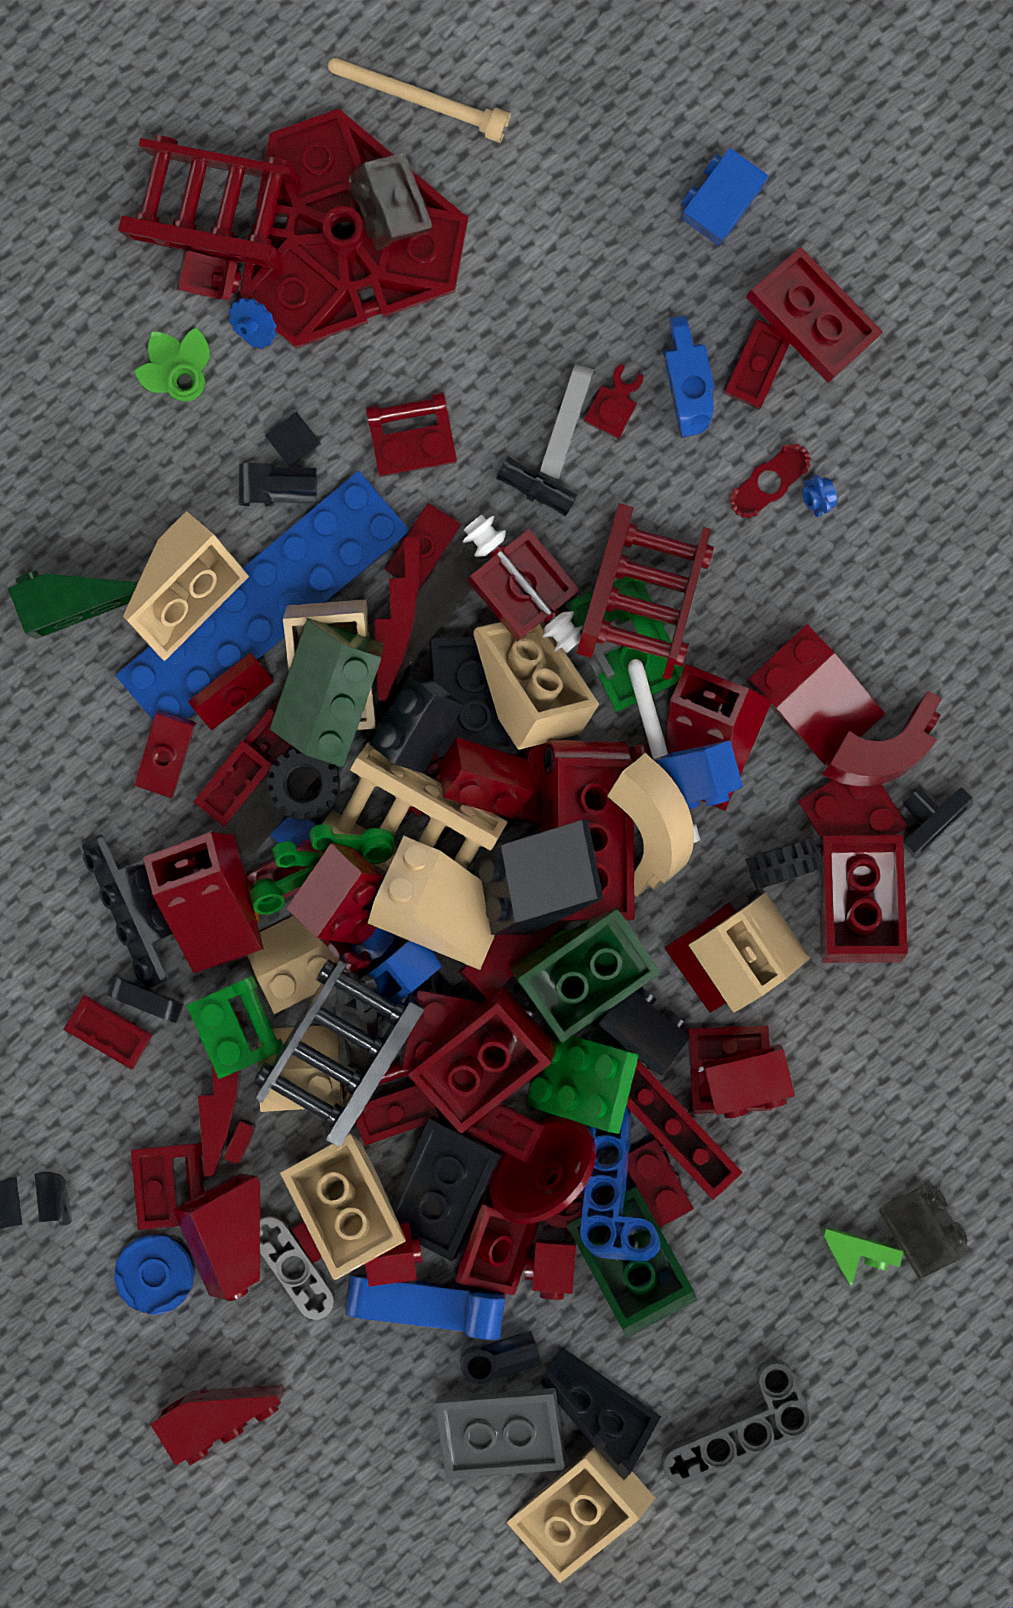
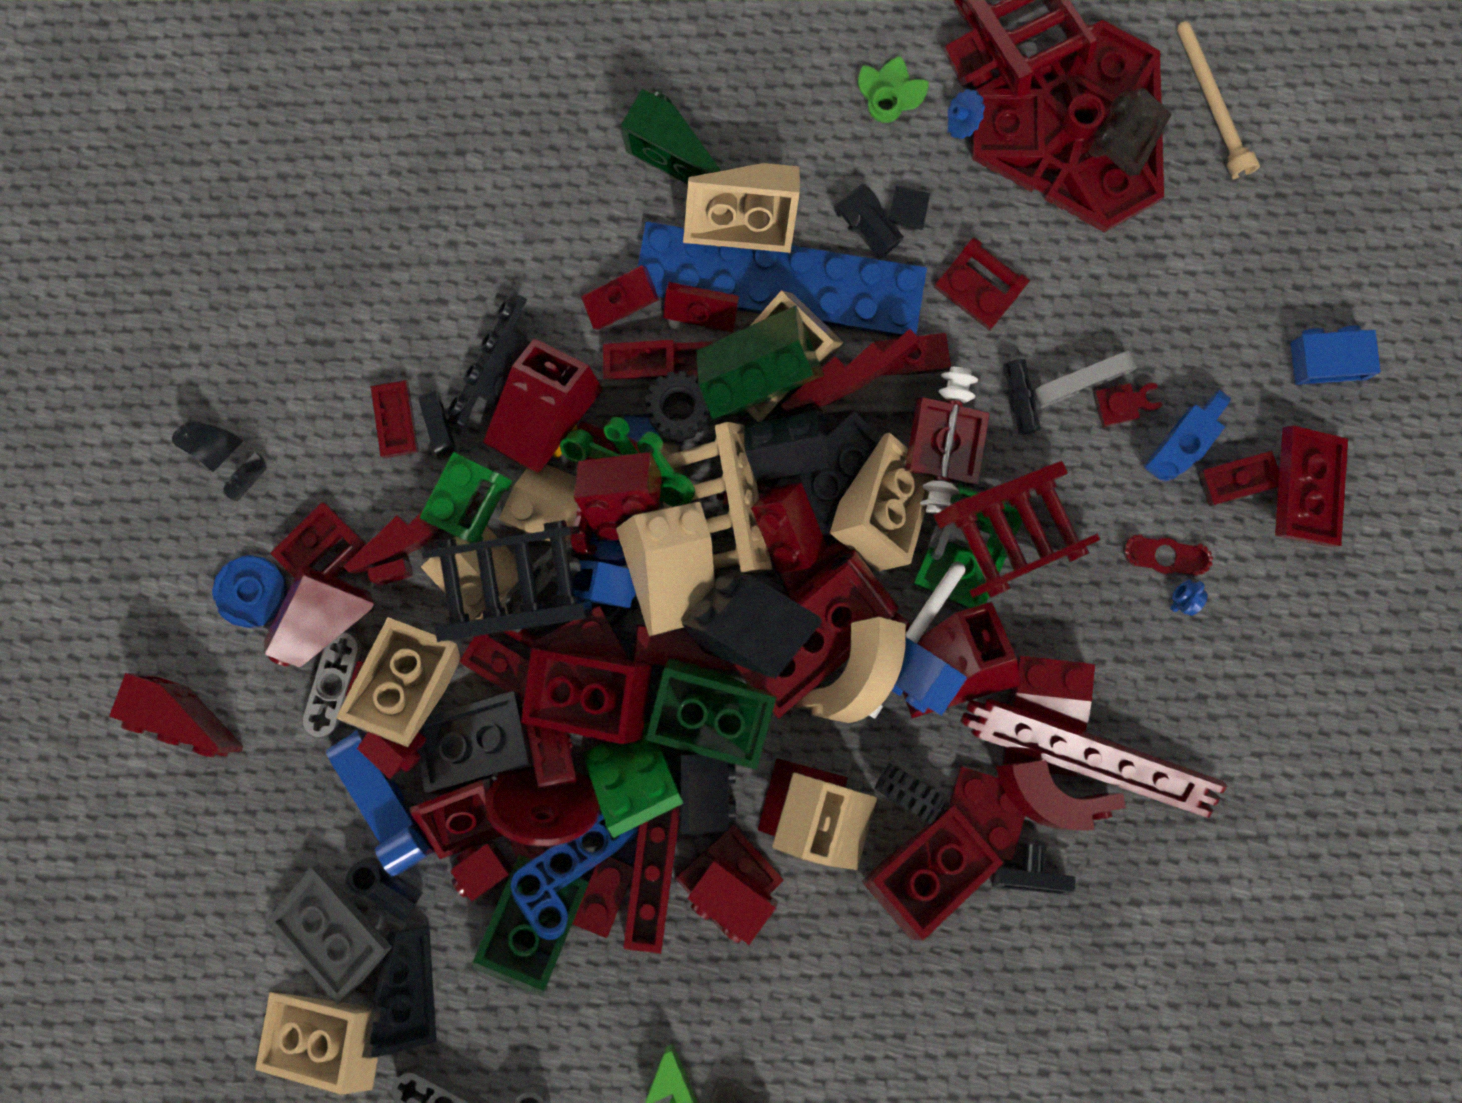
camera: 55 degrees right, 5 degrees down
(880, 688) = (1093, 756): none -> hinge

